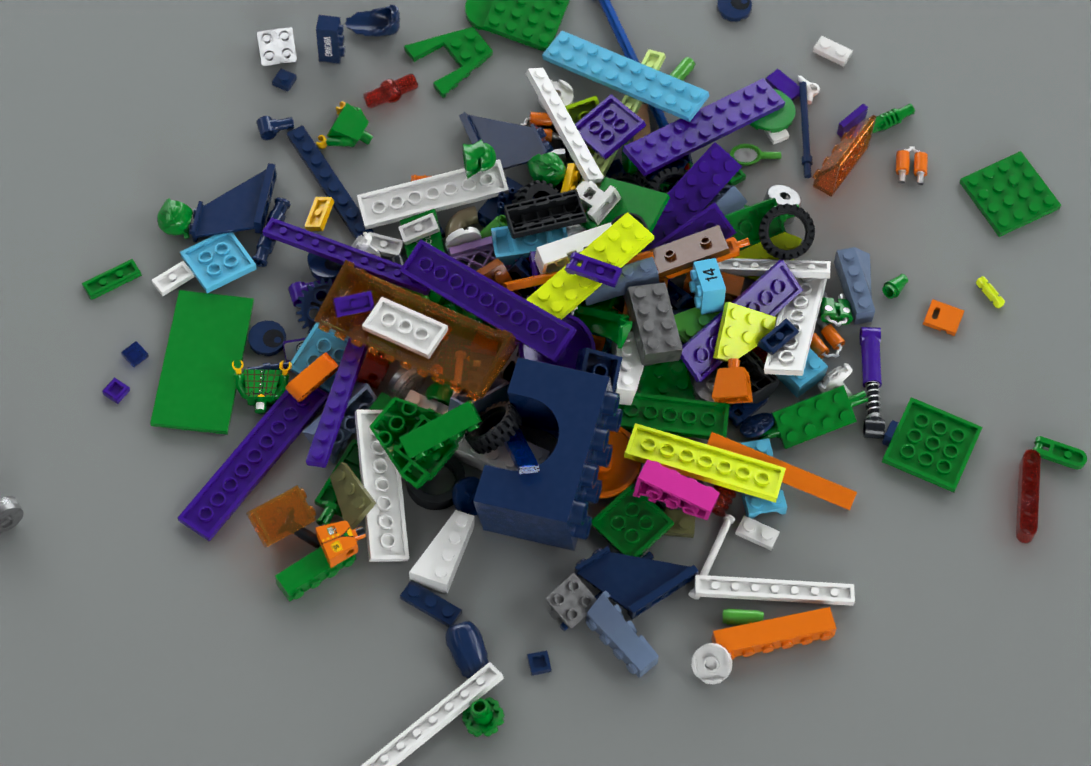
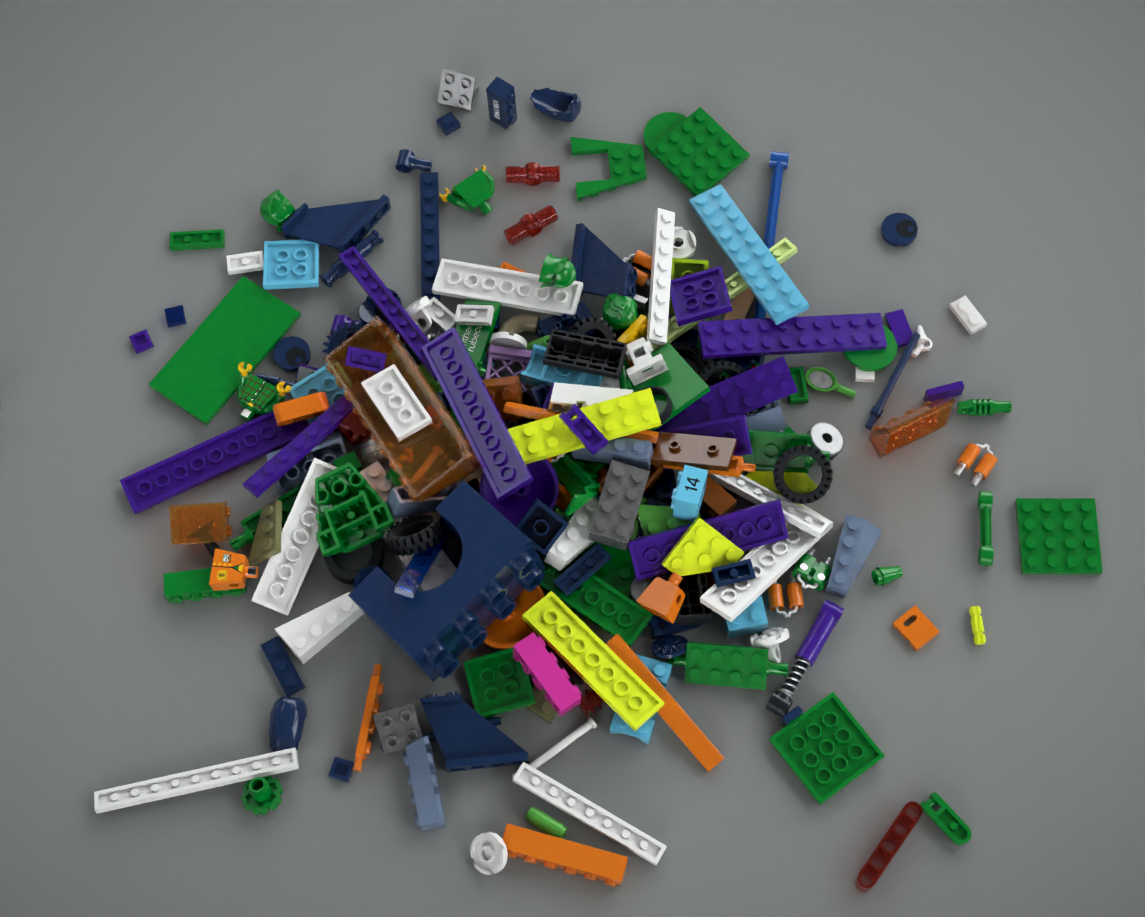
camera: 35 degrees right, 5 degrees up
(319, 214) = (402, 260): yellow plate -> none
(416, 134) = (531, 224): none -> clear red piece
(440, 429) = (366, 513): green brick -> none
(541, 615) = (368, 725): none -> orange plate
(649, 395) = (582, 570): none -> dark blue plate
(683, 68) = (807, 272): bright green piece -> none
(757, 532) = (610, 749): white plate -> none
(963, 231) = (986, 550): none -> green piece

